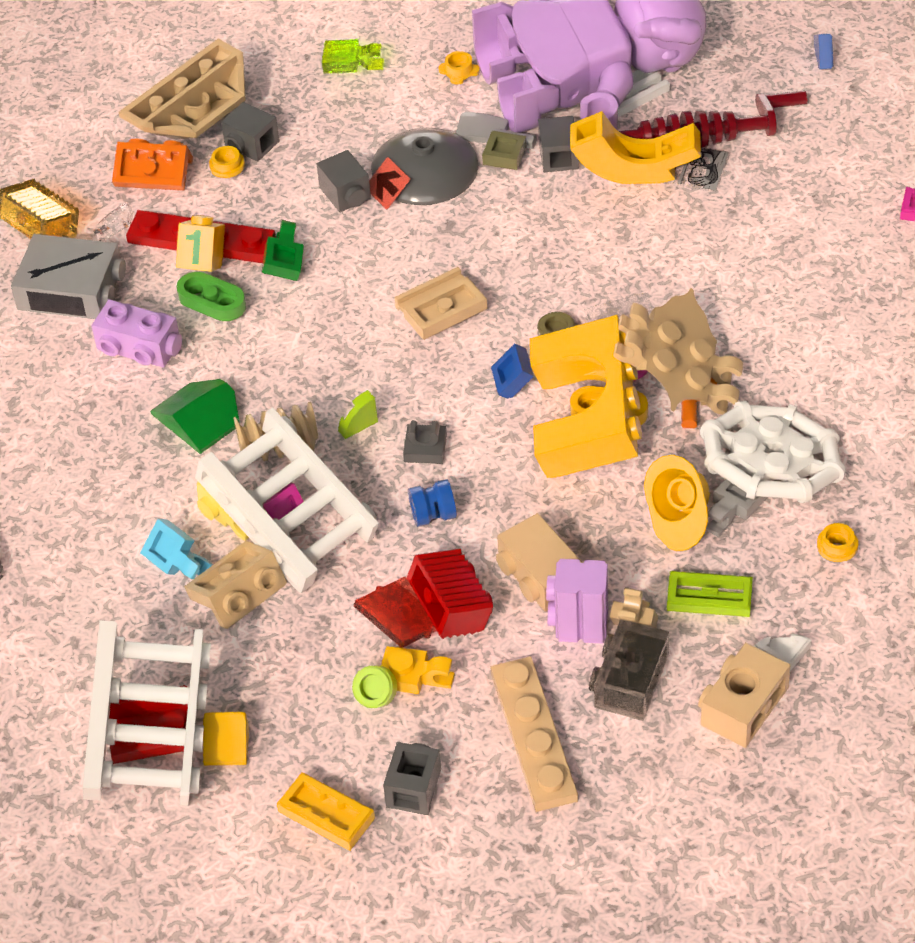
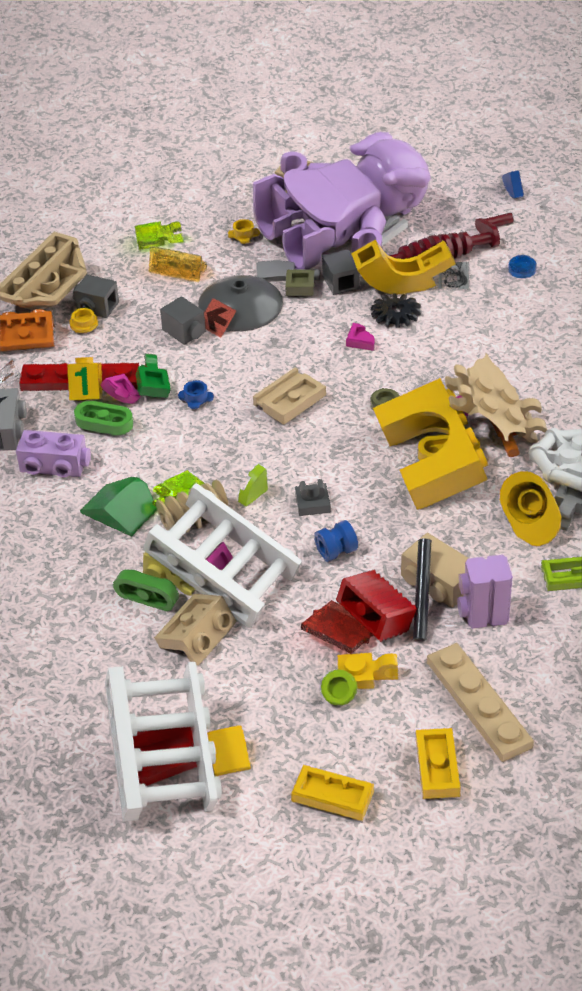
camera: 15 degrees left, 5 degrees down
(170, 550) = (134, 611): medium azure plate -> none
(205, 530) = (146, 589): none -> bright green plate
(240, 262) = (120, 389): none -> dark pink tile
(275, 396) = (175, 485): none -> clear neon green plate
(329, 282) = (195, 394): none -> blue plate
(361, 101) = (176, 264): none -> clear yellow hinge
(412, 778) = (397, 753): dark grey brick -> none
(456, 799) = (437, 763): none -> yellow plate
(507, 584) = (422, 589): none -> black bar
(512, 371) = (364, 435): blue tile -> none
(554, 237) = (360, 338): none -> dark pink tile
(627, 206) = (408, 310): none -> black gear
(630, 669) = (541, 638): clear smoke brick -> none
(633, 609) = (529, 594): tan plate -> none
(793, 169) = (522, 266): none -> clear blue tile

